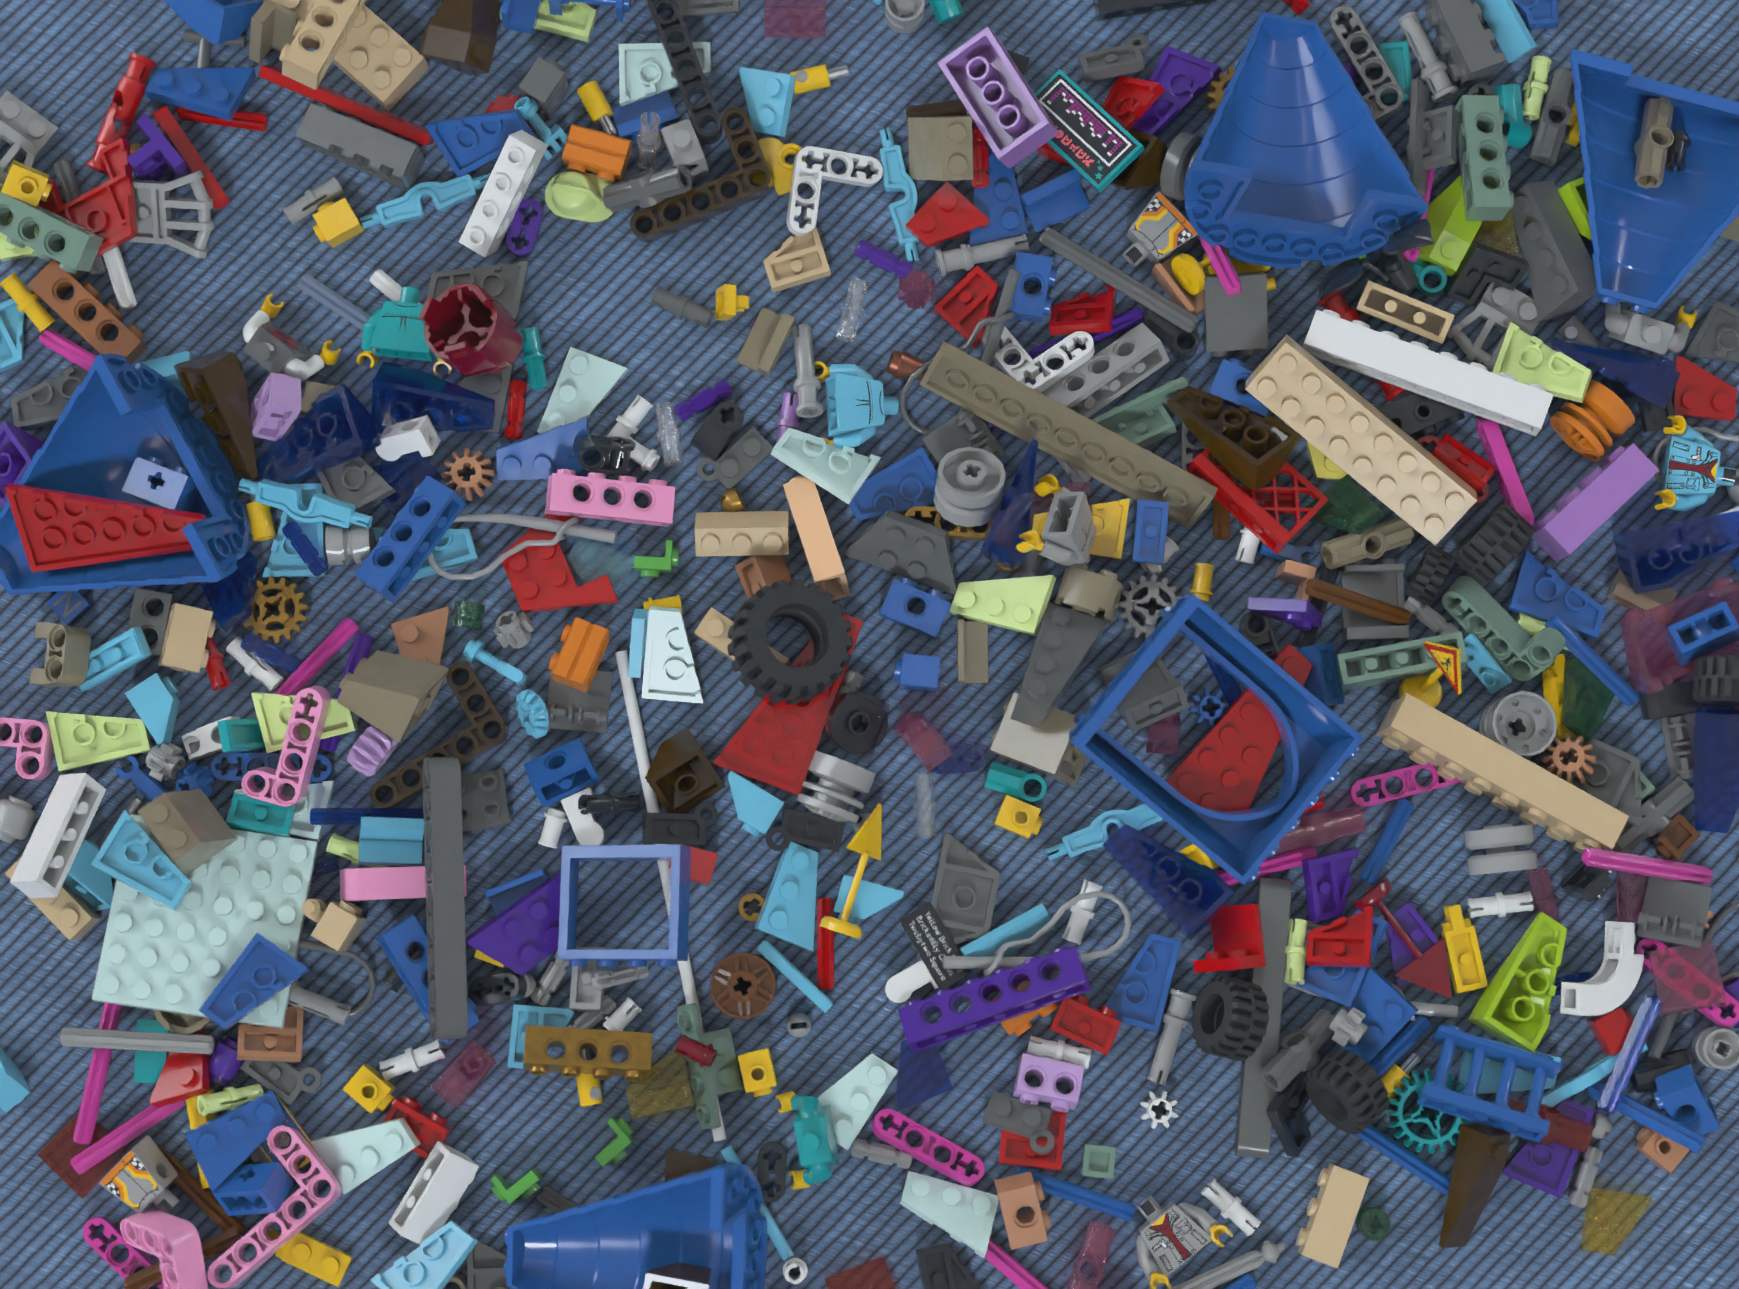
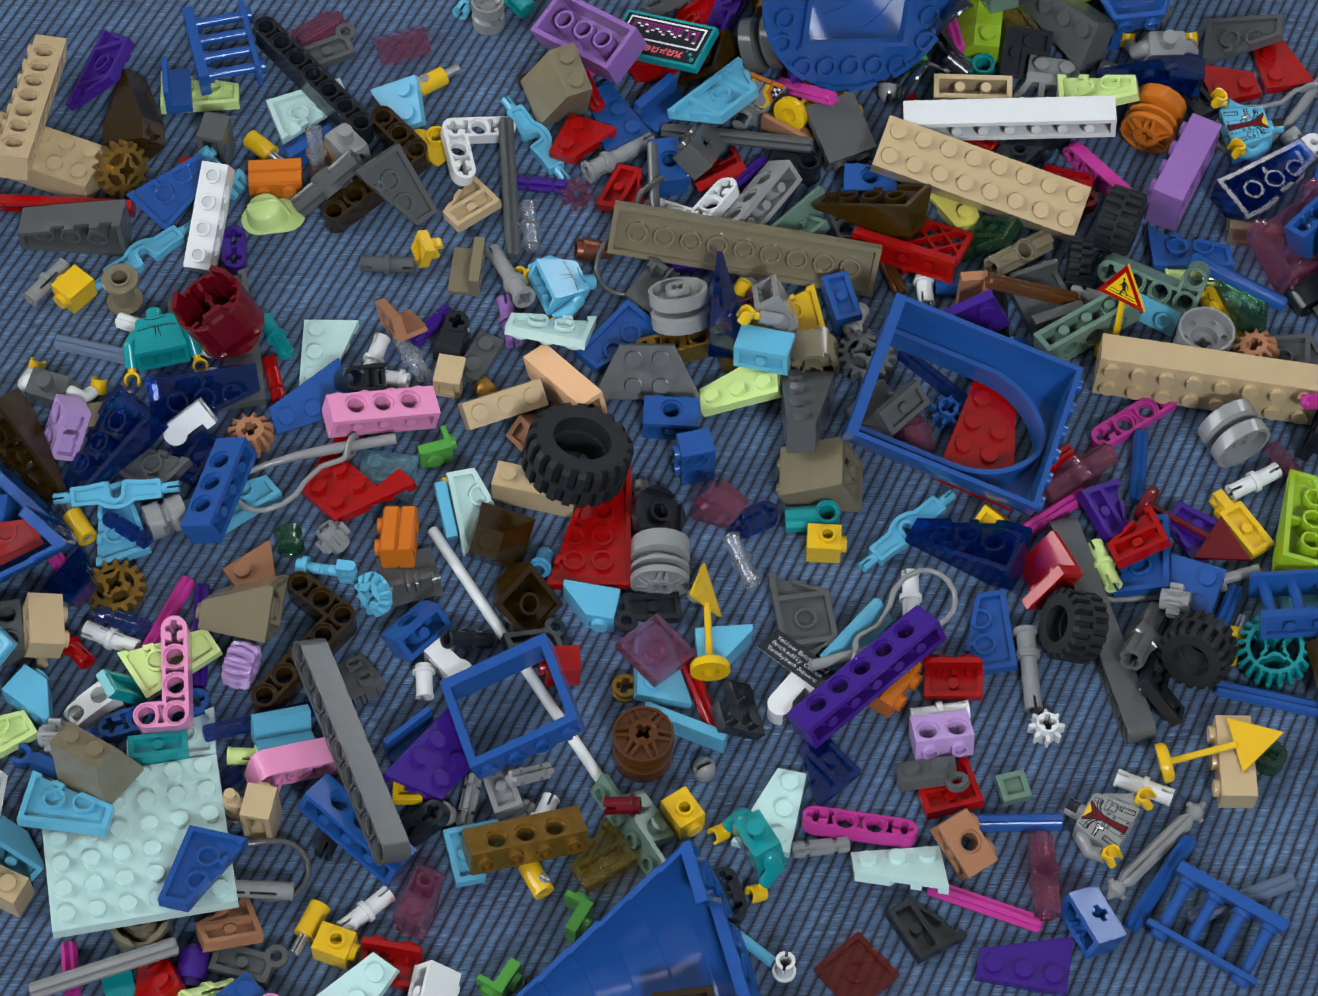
camera: 20 degrees left, 25 degrees down
(352, 1055) = (309, 925): none -> yellow piece
(377, 238) = (121, 284): none -> dark tan hose
(430, 87) = (119, 165): none -> pearl gold gear
(669, 392) = (399, 325): none -> nougat panel
(682, 694) = (499, 536): none -> dark brown slope
(699, 474) = (448, 376): none -> tan panel
(714, 741) = (543, 561): none -> dark azure pin
(722, 218) = (398, 184): none -> dark grey wing
(794, 887) = (655, 650): none -> clear pink tile
(846, 254) = (509, 188): none -> dark grey axle
(859, 986) = (739, 714): none -> black plate
(972, 652) = (731, 436): dark tan panel -> none
(1036, 581) = (763, 349): none -> medium azure panel
(1068, 287) = (698, 150): none -> dark grey brick
(1115, 226) = (718, 96): none -> medium azure wing
(1315, 269) = (889, 90): none -> light grey hinge
(1353, 1207) = (1247, 738): none -> yellow piece

